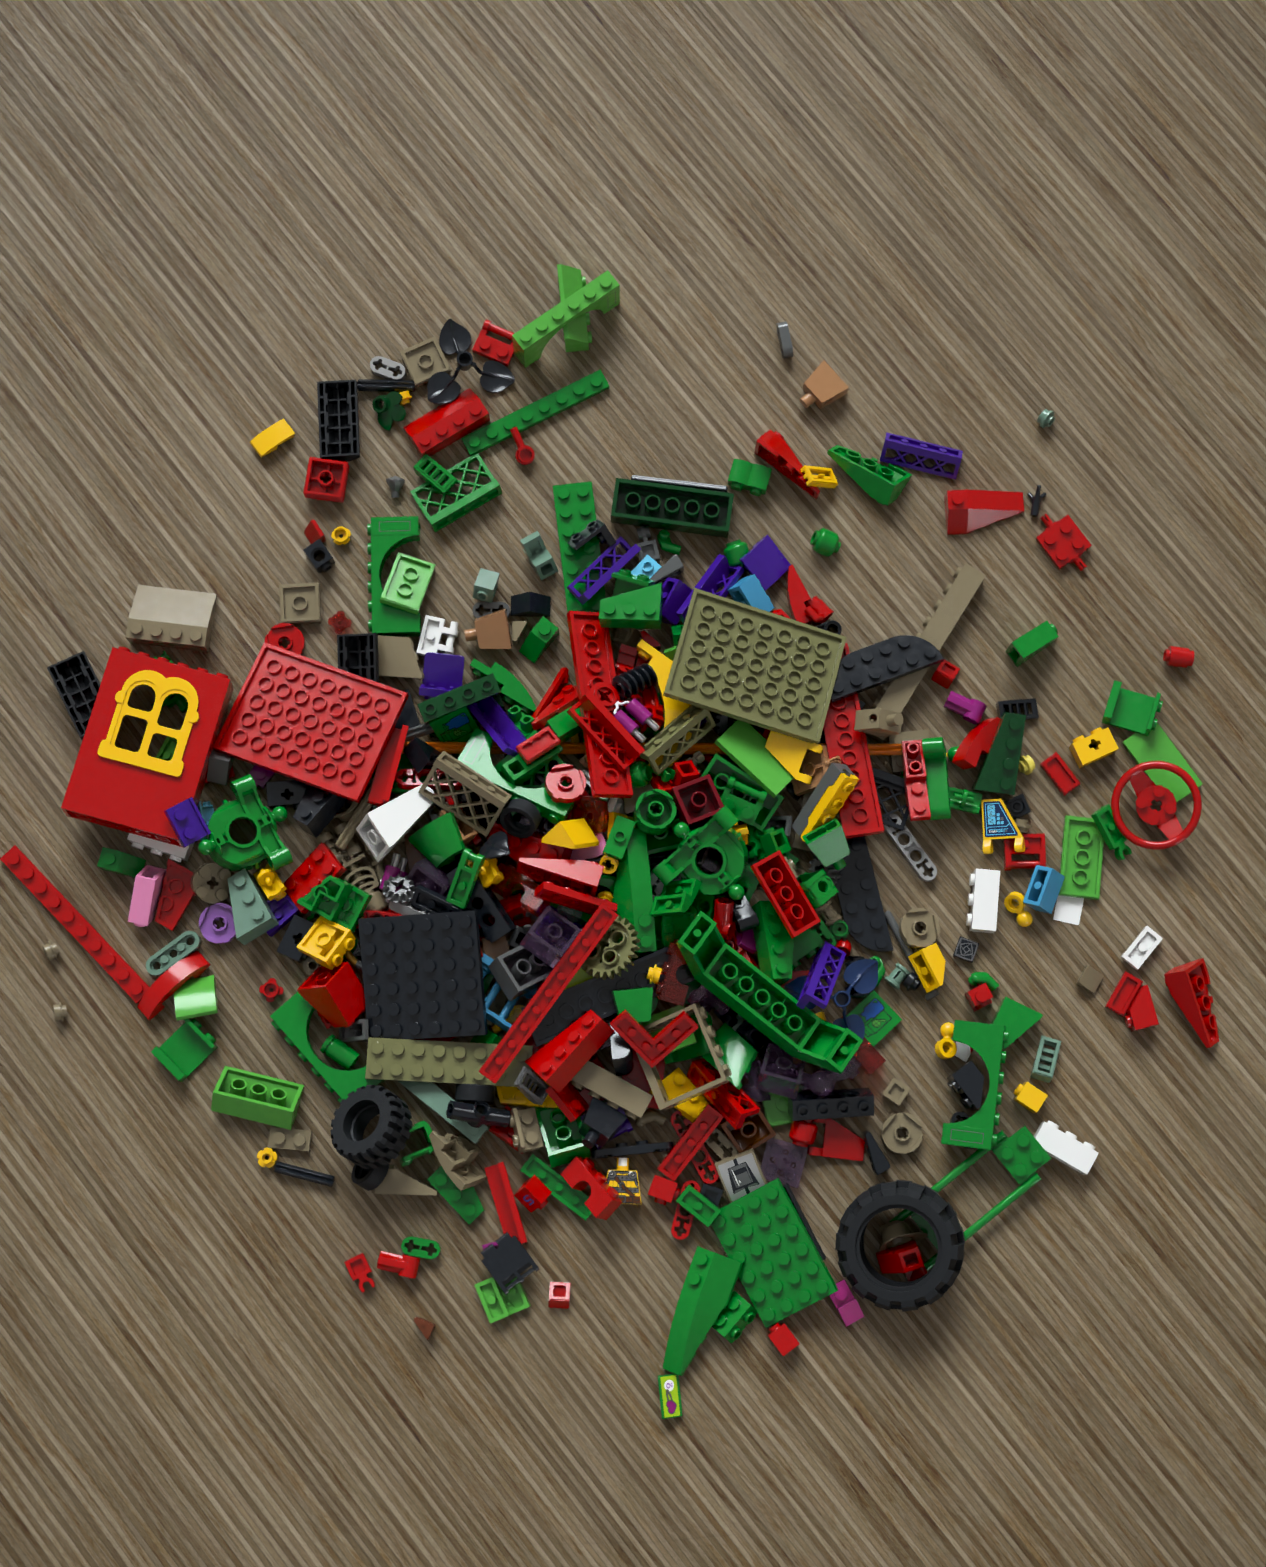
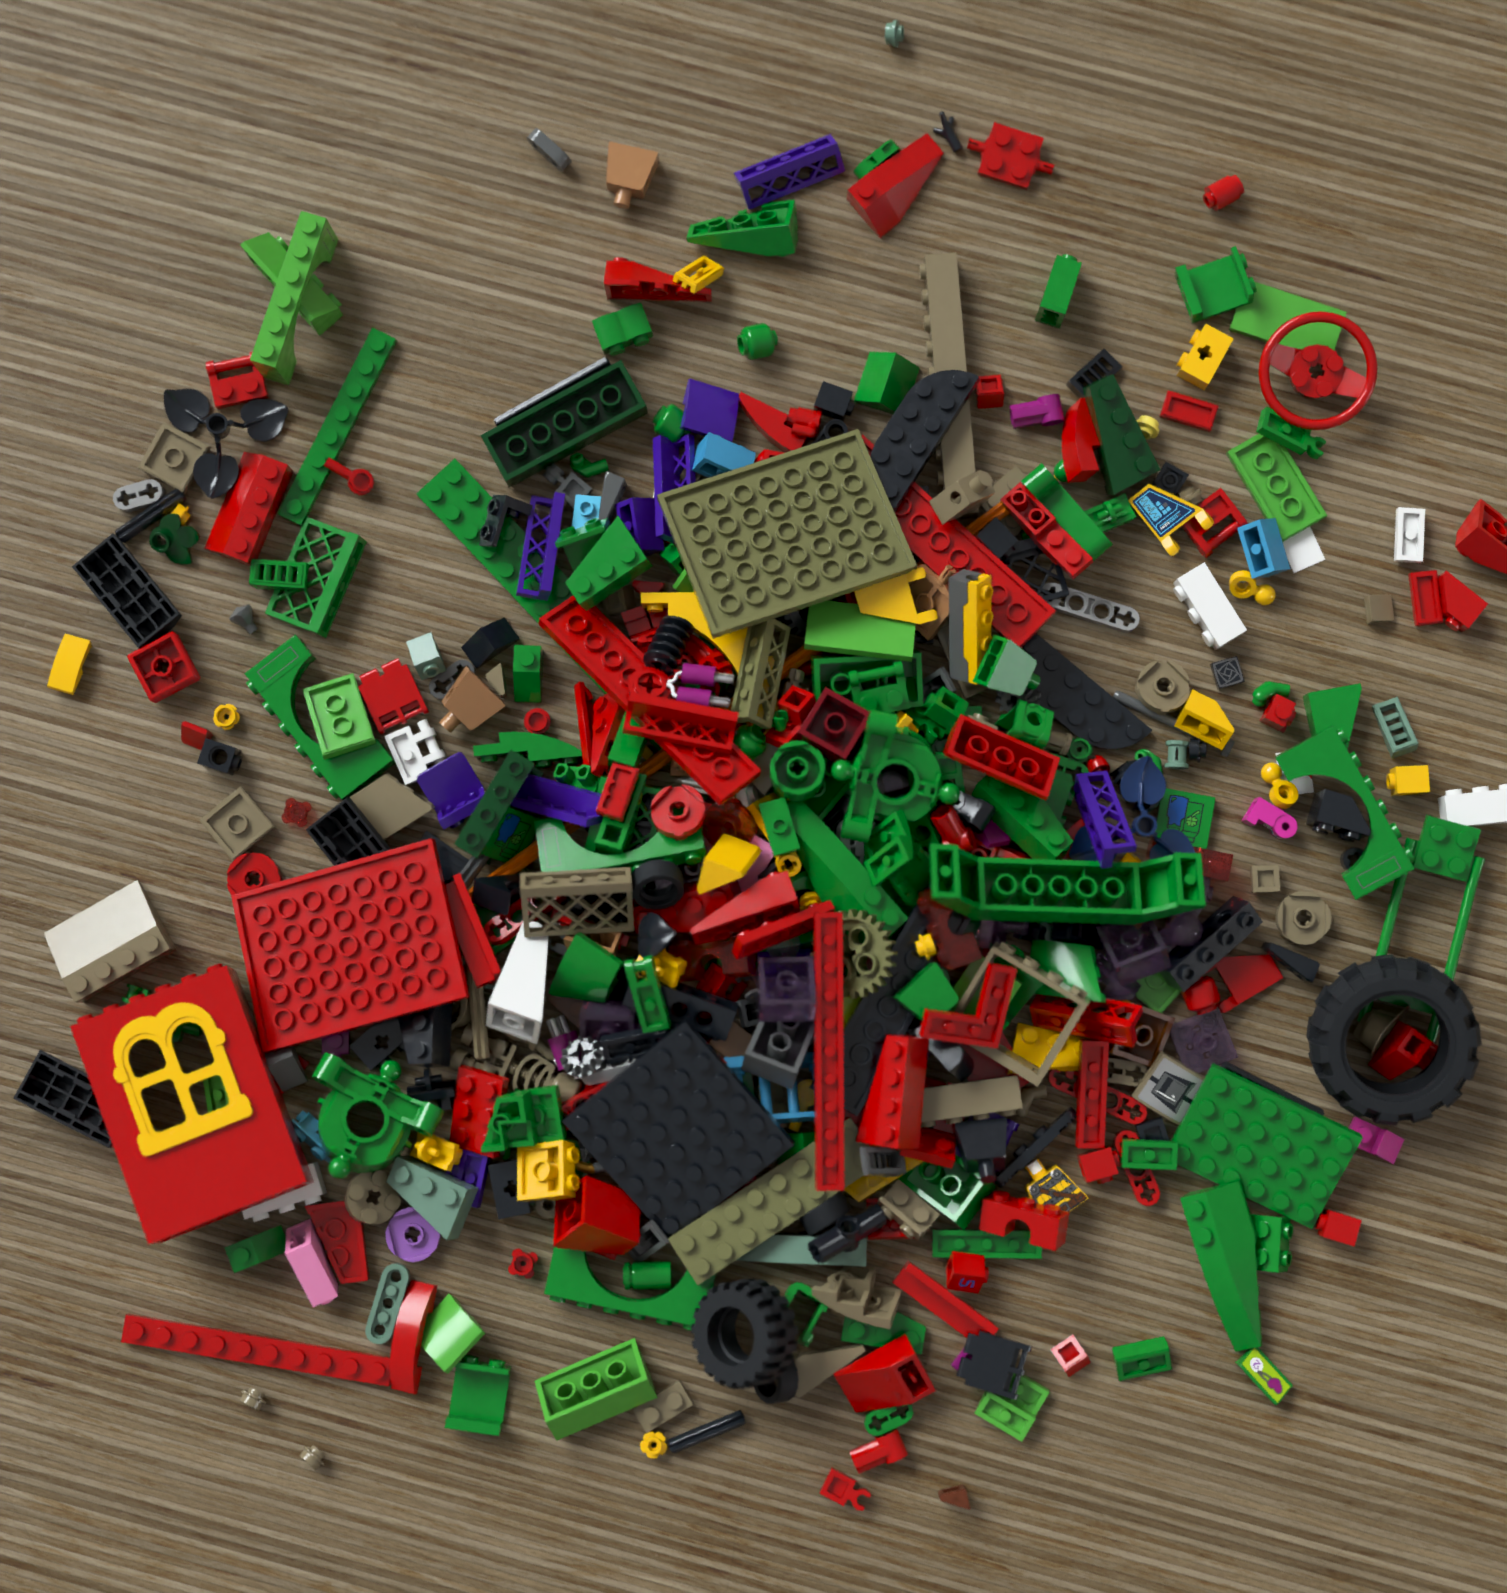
camera: 30 degrees left, 5 degrees up
(187, 822) = (299, 1156): dark purple plate -> none
(297, 845) = (433, 1087): none -> black hips
(436, 1221) = (885, 1378): none -> red slope
(448, 594) = (391, 695): none -> red plate
(523, 672) = (537, 721): none -> red plate
(538, 555) = (459, 582): sand green brick -> none
(601, 1329) = (1142, 1358): none -> green slope
(845, 611) = (834, 401): none -> black brick
(881, 763) = (997, 538): none -> black brick
(886, 621) = (885, 381): none -> green slope
(930, 1064) = (1277, 821): none -> dark pink leg
(982, 484) = (876, 158): none -> green piece

